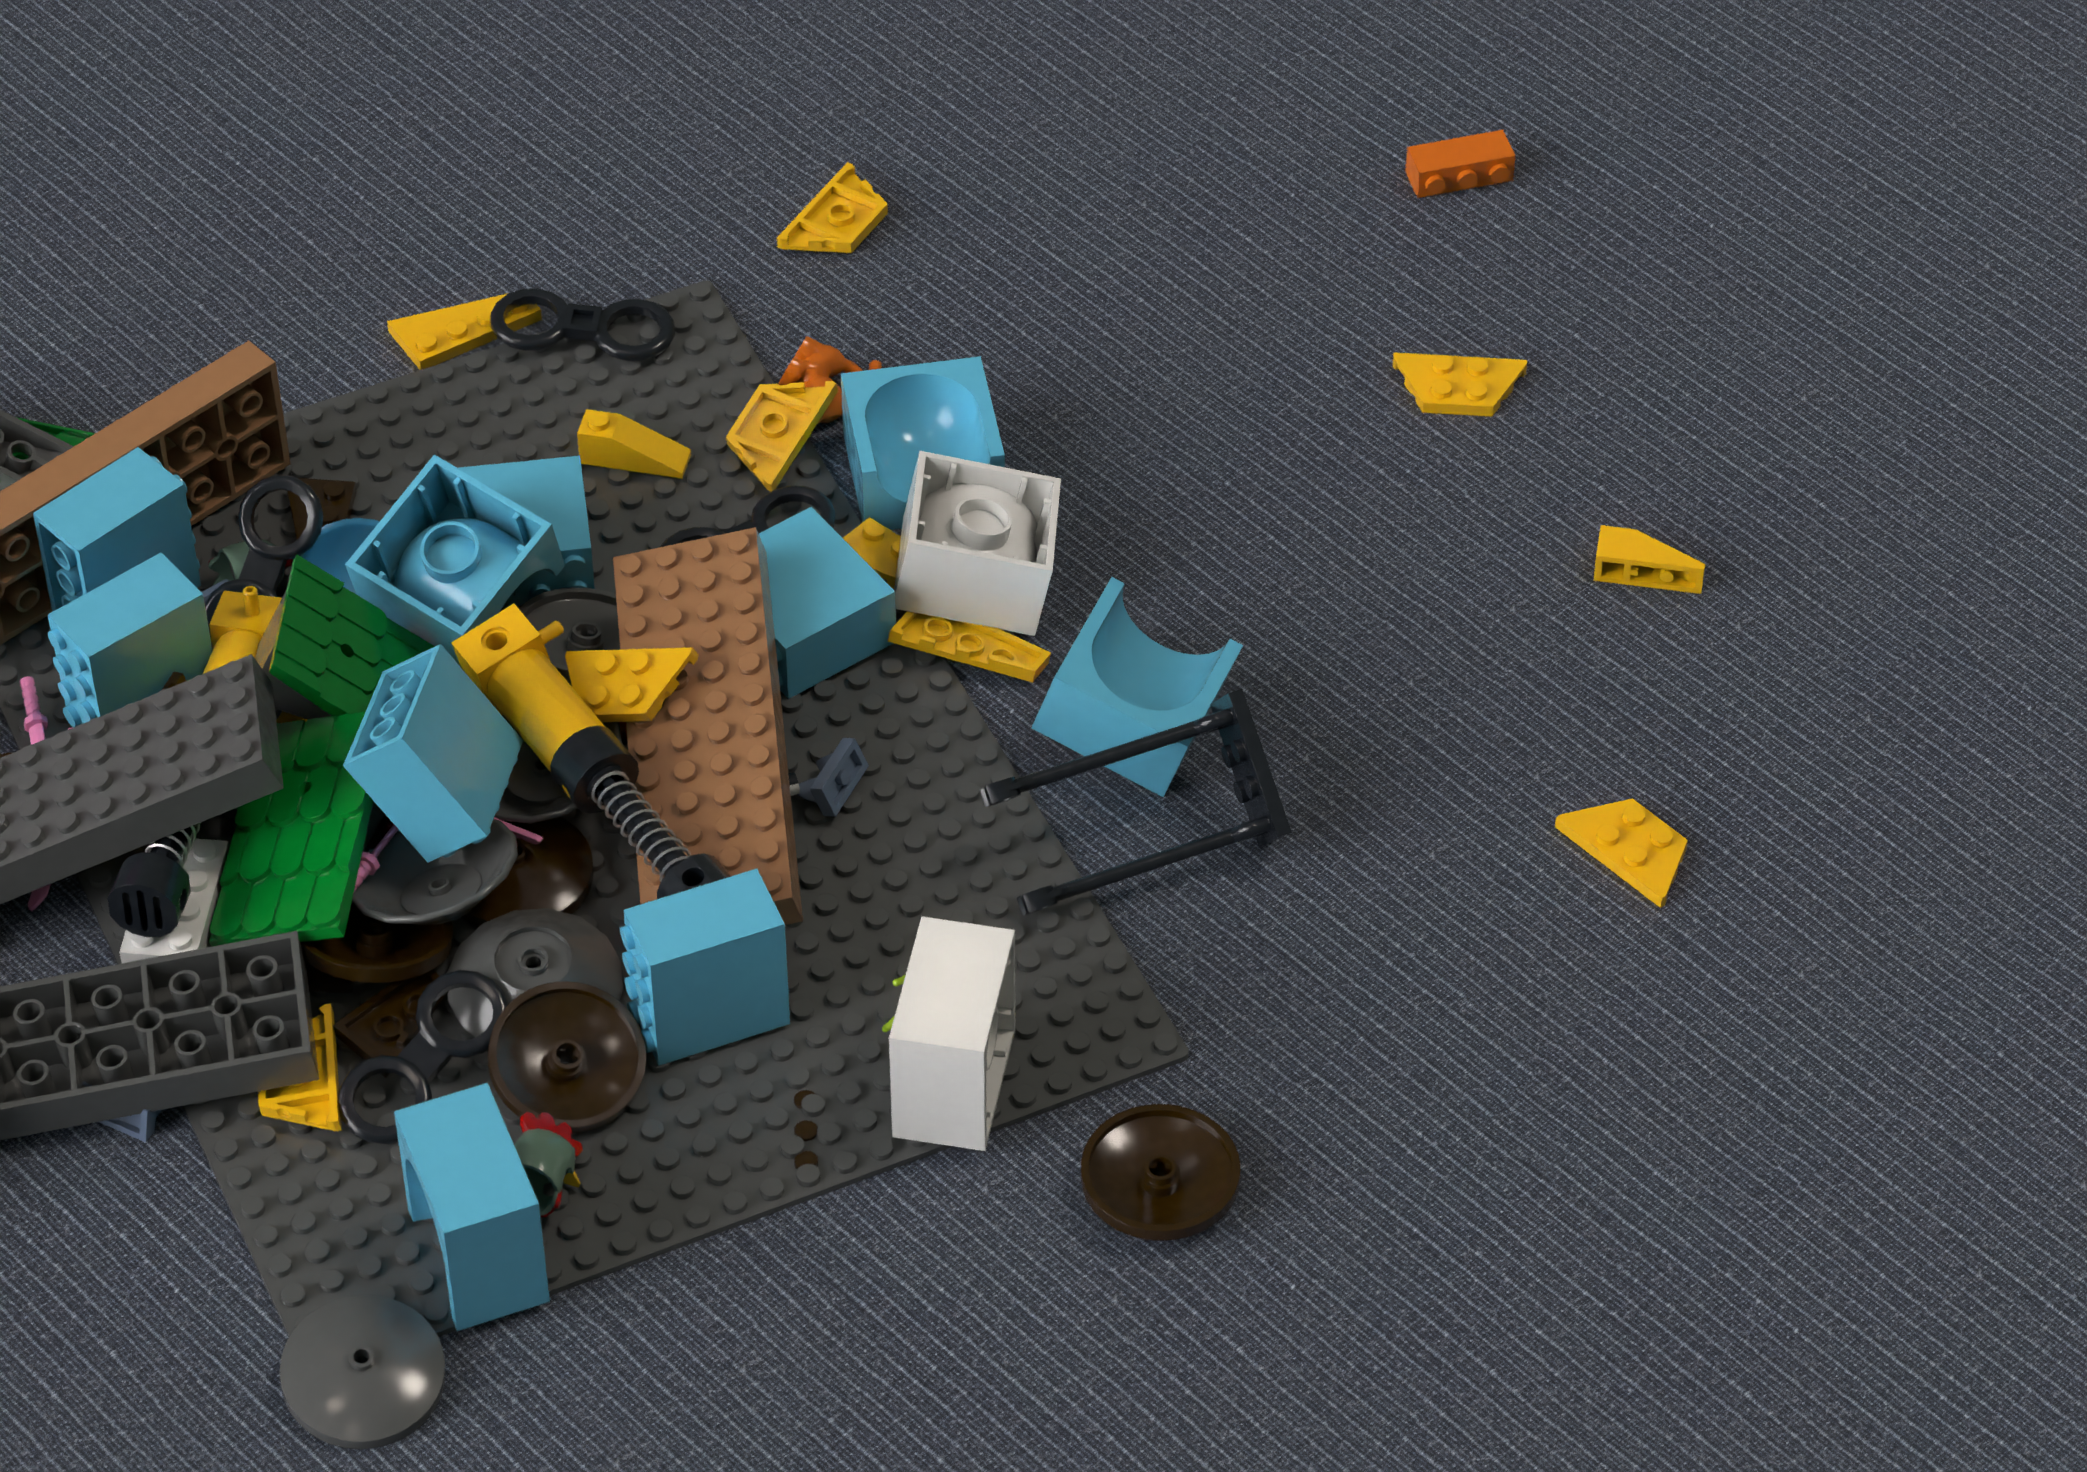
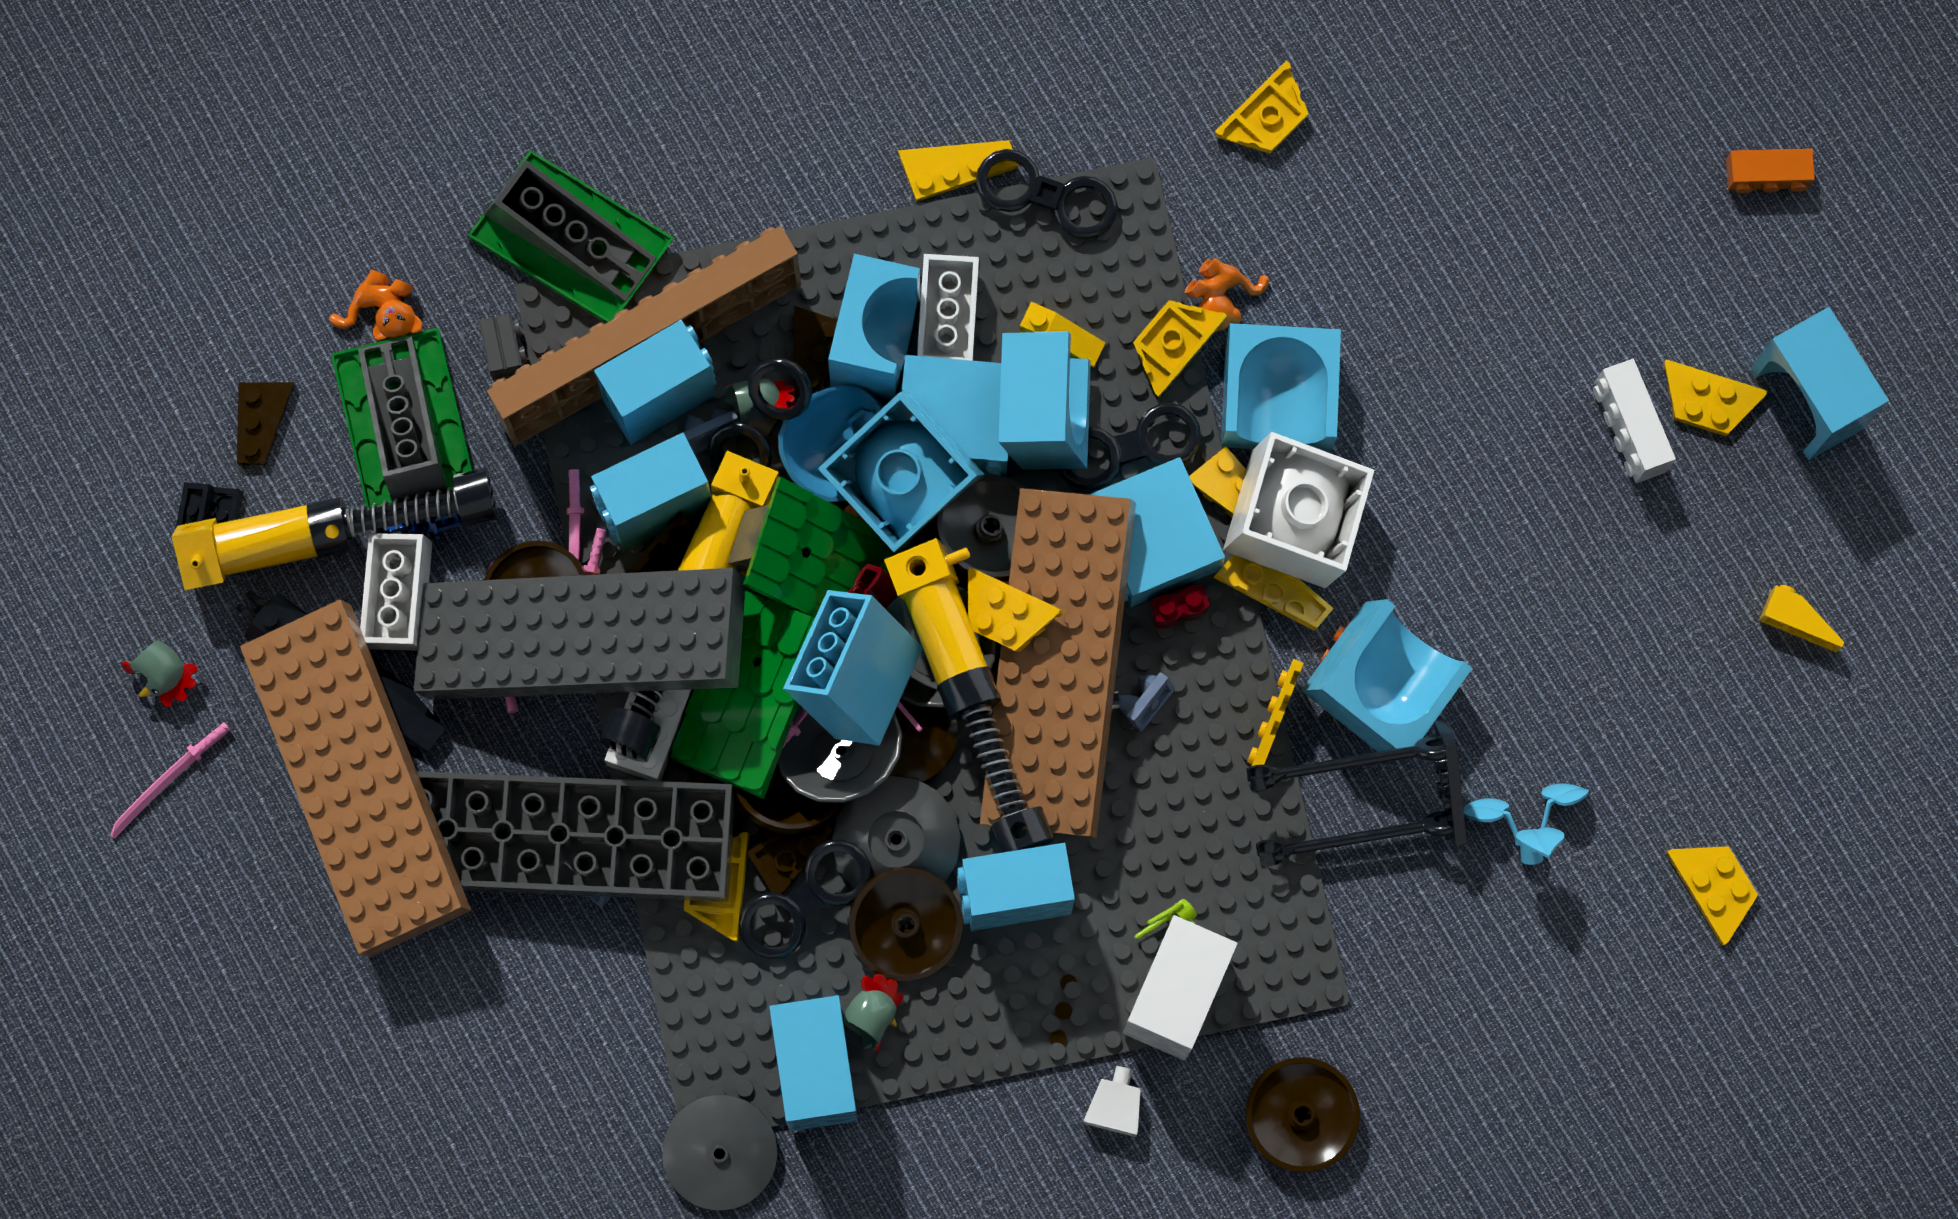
camera: 10 degrees right, 30 degrees up
(386, 427) = (875, 326): none -> medium azure piece
(480, 422) = (948, 306): none -> white brick
(616, 478) = (1044, 401): none -> medium azure piece
(850, 676) = (1172, 608): none -> dark red brick
(902, 1216) = (1115, 1104): none -> white torso
(1006, 750) = (1277, 709): none -> yellow wing
(1373, 404) = (1633, 421): none -> white brick
(1377, 834) = (1532, 843): none -> medium azure plant
(1591, 298) = (1829, 374): none -> medium azure piece

